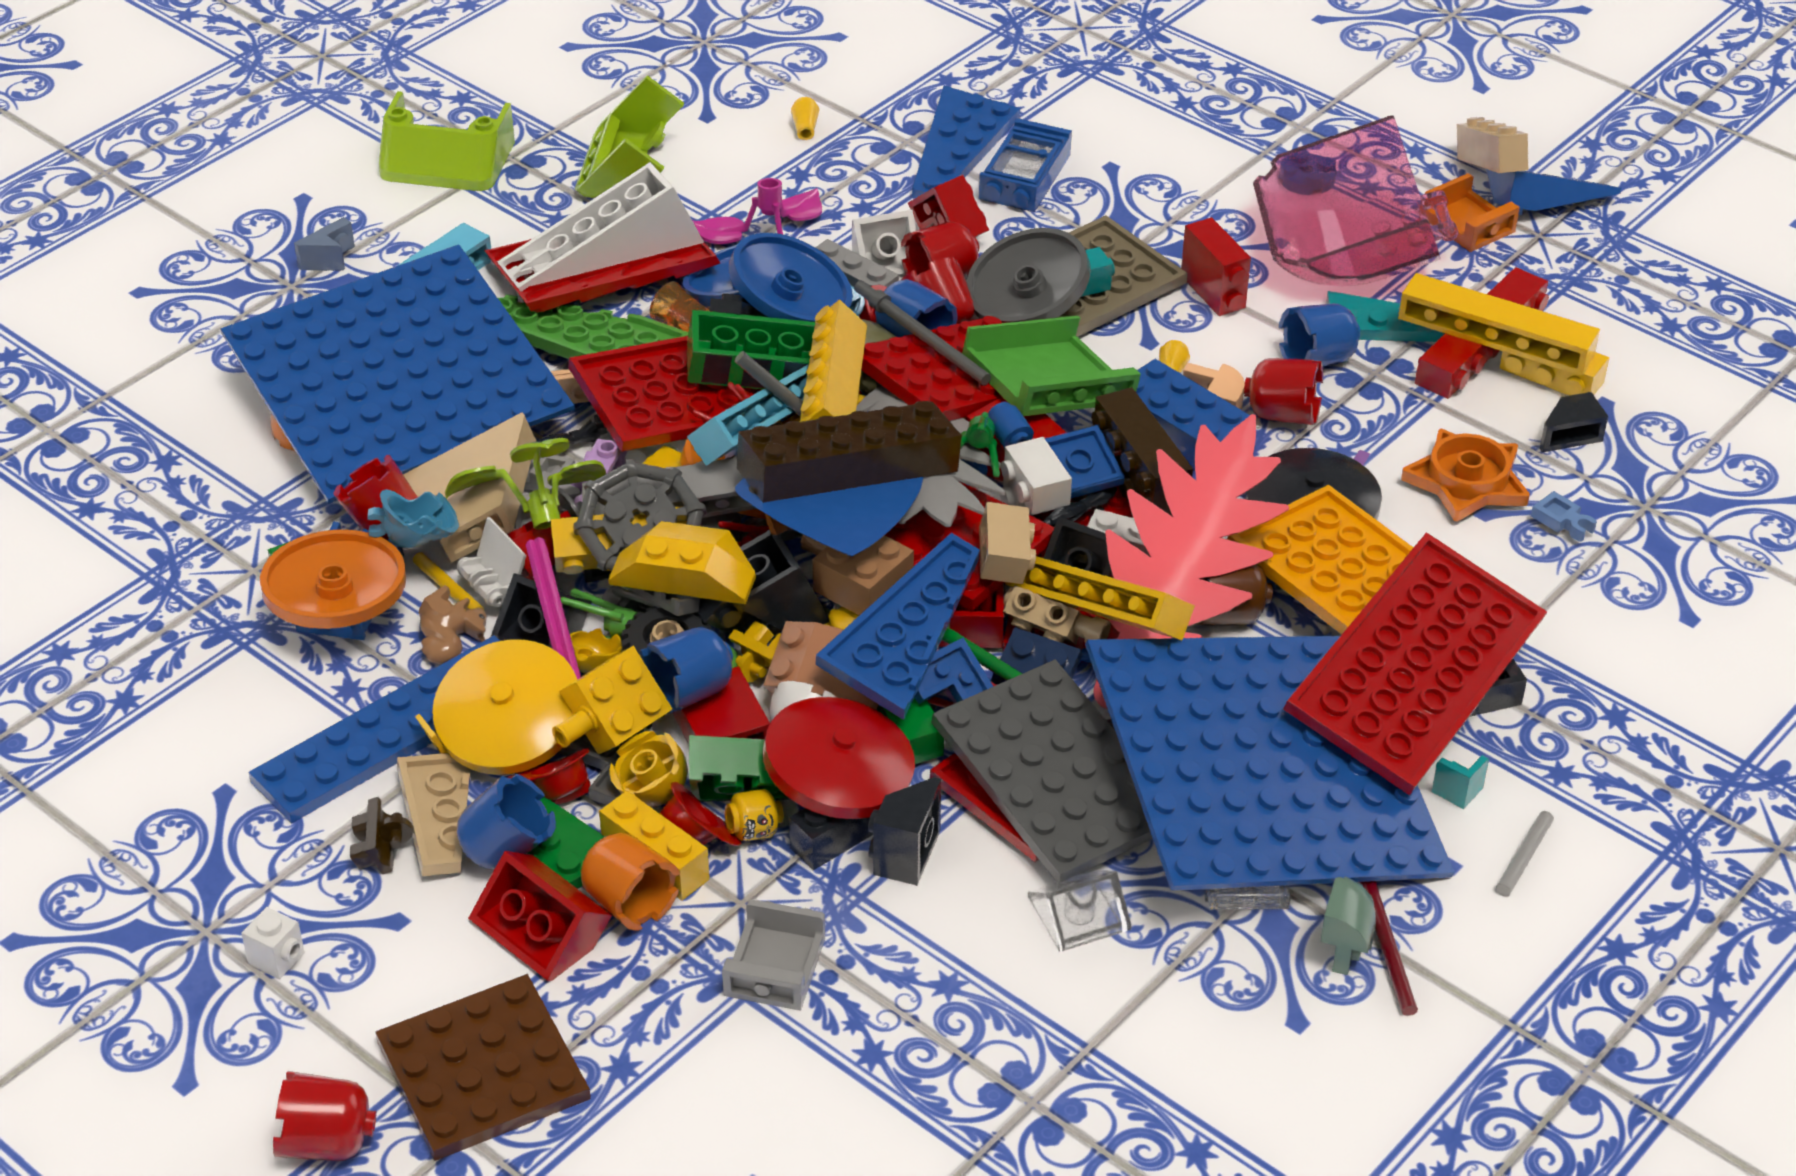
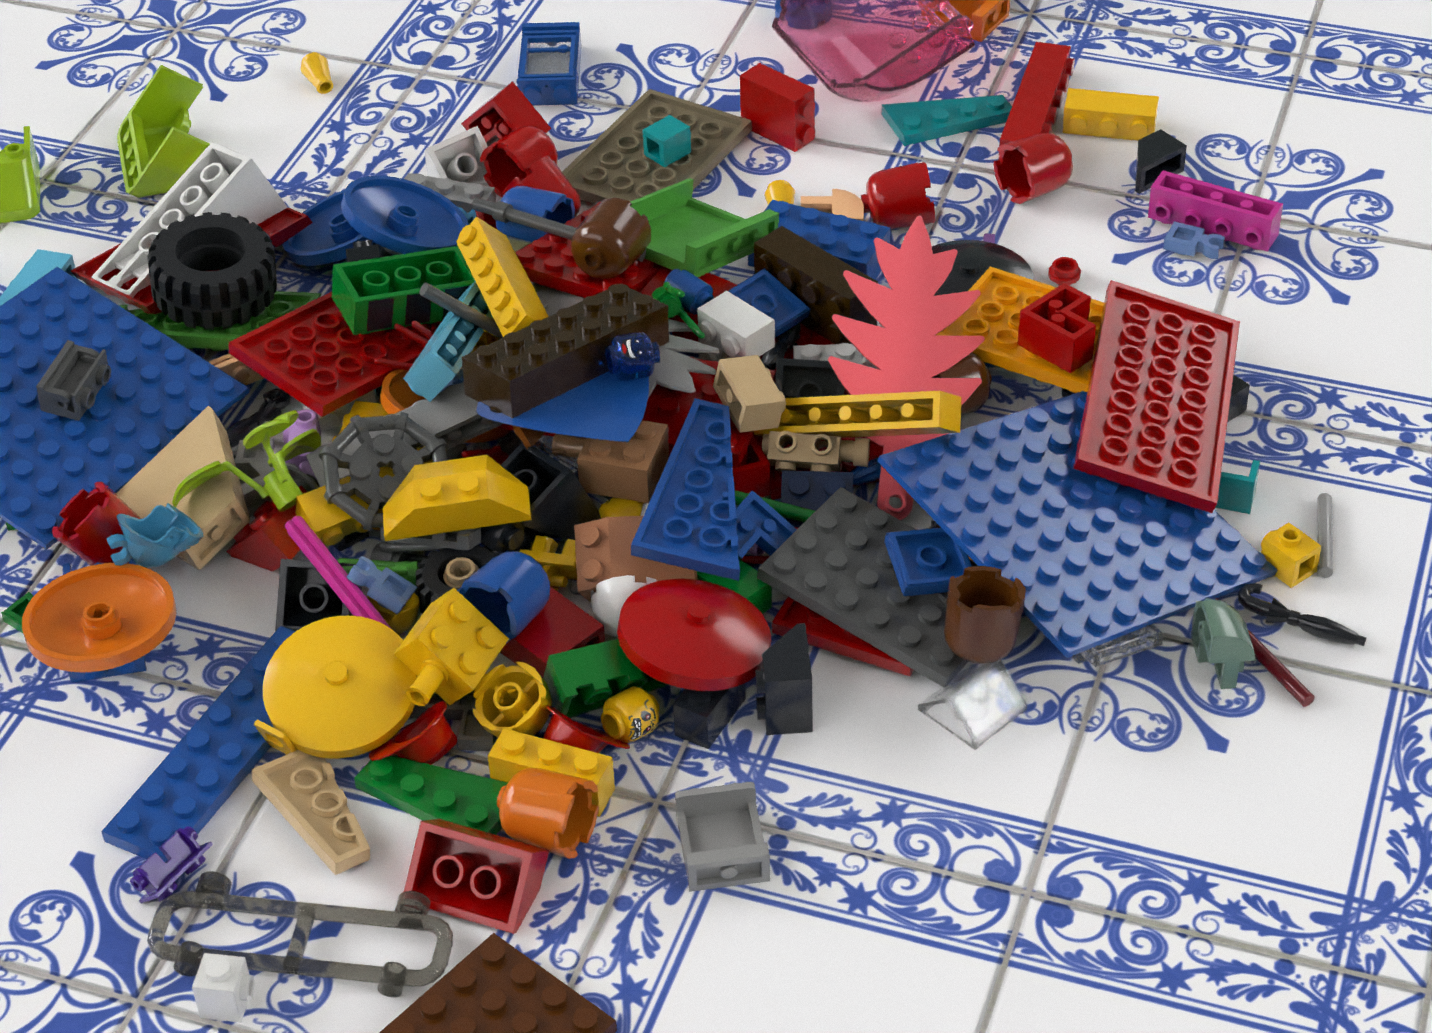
camera: 20 degrees left, 0 degrees up
(272, 827) = (159, 877): none -> dark purple hinge
(311, 858) = (213, 894): none -> clear smoke bar
(381, 836) = (275, 846): dark brown hips -> none
(416, 355) = (73, 381): none -> dark grey hinge
(442, 579) = (208, 593): yellow bar -> none
(443, 623) = (224, 630): medium nougat animal -> none
(493, 565) = (251, 558): white hinge -> none
(504, 819) = (400, 796): blue cylinder -> none
(589, 627) = (384, 586): none -> medium blue plate
(594, 312) = (205, 298): none -> black tyre
(674, 306) = (301, 275): clear orange plant -> none
(797, 208) = (337, 154): dark pink plant -> none
(902, 475) = (632, 356): none -> clear blue head
(951, 356) = (610, 239): none -> reddish brown cylinder
(961, 136) = (473, 55): blue wing -> none
(1029, 276) = (620, 155): dark grey dish -> none
(1093, 758) = (925, 560): none -> blue plate
(1110, 823) = (983, 614): none -> reddish brown cylinder
(1319, 333) = (900, 140): blue cylinder -> none
(1347, 564) = (1059, 328): none -> red brick
(1414, 510) = (1064, 271): none -> red plate
(1439, 395) = (1033, 166): none -> red cylinder
(1459, 939) = (1315, 625): none -> black piece
(1468, 473) = (1093, 226): orange plate -> none
(1474, 861) = (1291, 553): none -> yellow brick
(1499, 324) = (1055, 91): yellow brick -> none
(1601, 491) = (1217, 209): none -> dark pink brick

